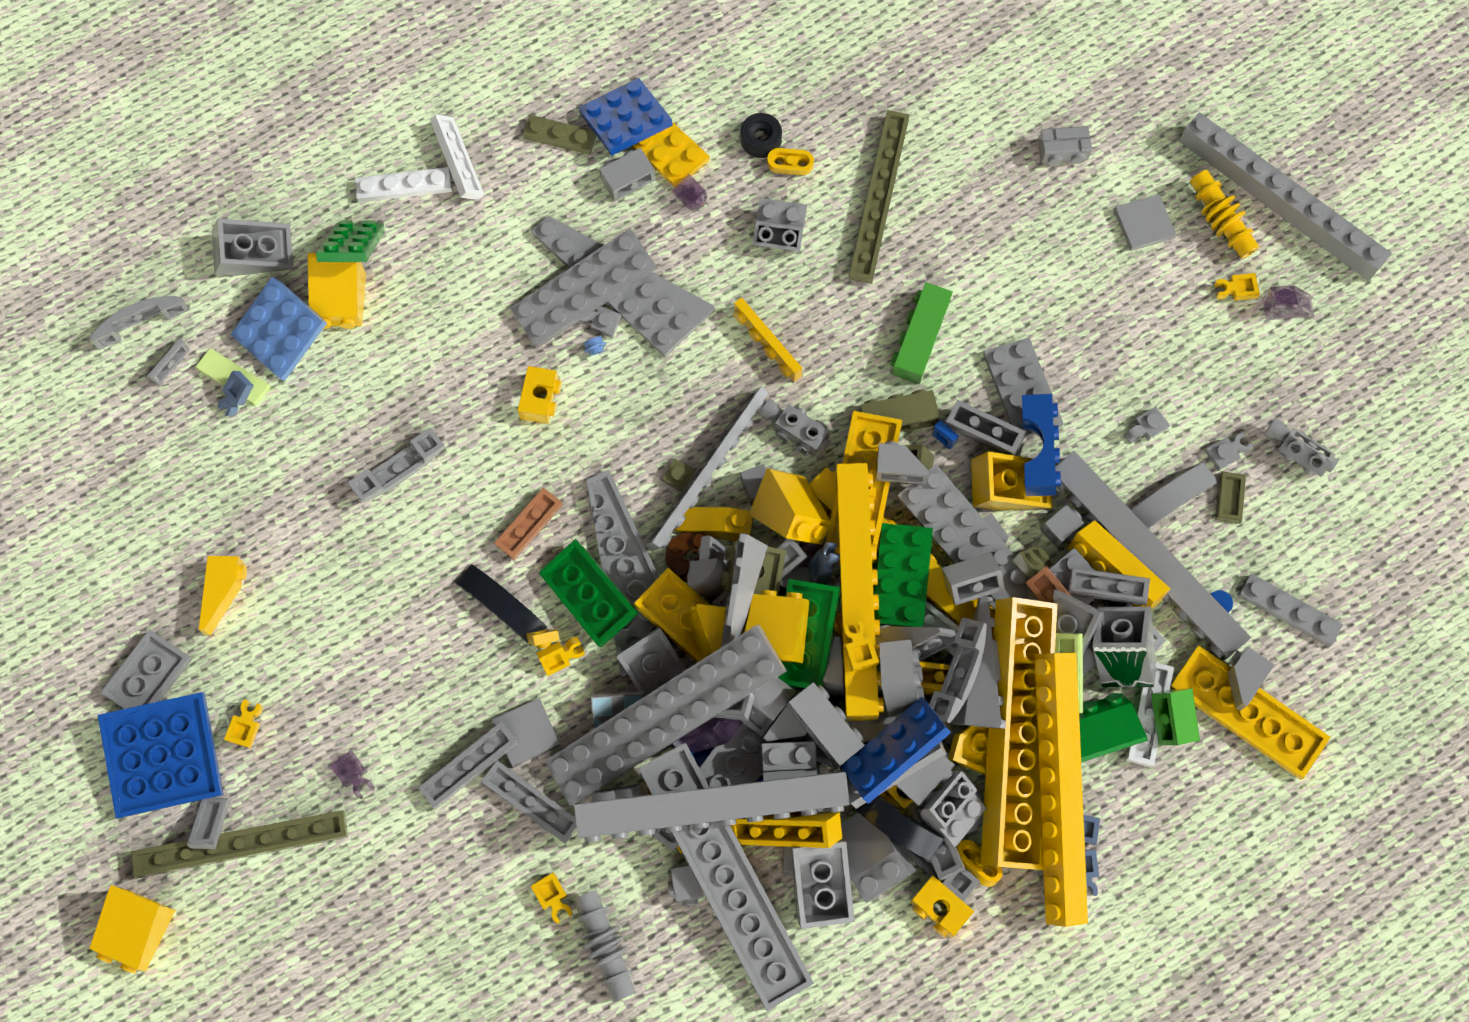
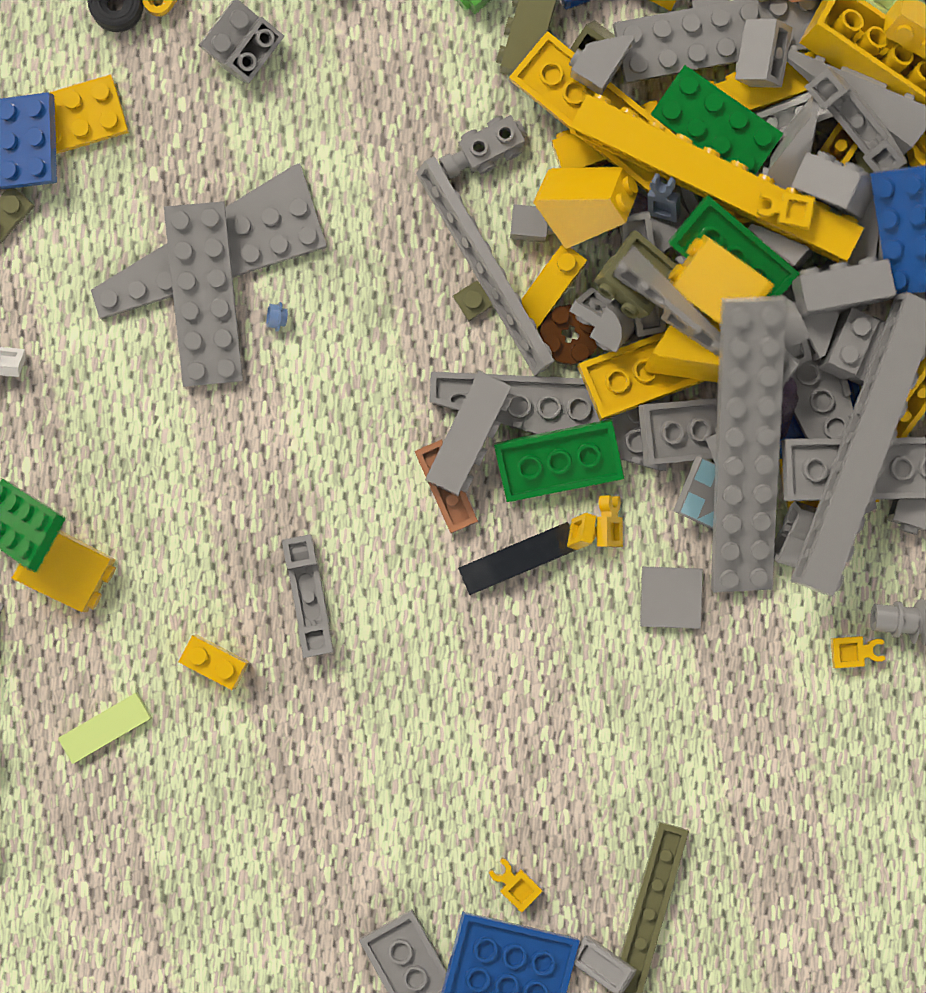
camera: 60 degrees left, 15 degrees up
(168, 362) = (48, 793): light grey slope -> none
(220, 588) = (347, 843): yellow slope -> none
(237, 391) = (130, 731): sand blue plate -> none
(278, 328) = (76, 652): medium blue plate -> none
(315, 424) = (213, 662): none -> yellow brick
(350, 771) = (620, 796): clear purple plate -> none
(468, 765) = (678, 672): light grey plate -> none
(530, 802) = (747, 626): light grey plate -> none
(539, 381) = (287, 397): yellow brick -> none
(573, 516) = (468, 434): none -> light grey brick
(603, 321) = (251, 291): light grey plate -> none
(627, 174) = (85, 177): light grey brick -> none
(690, 193) = (147, 118): plate -> none
(772, 346) = (380, 124): yellow plate -> none

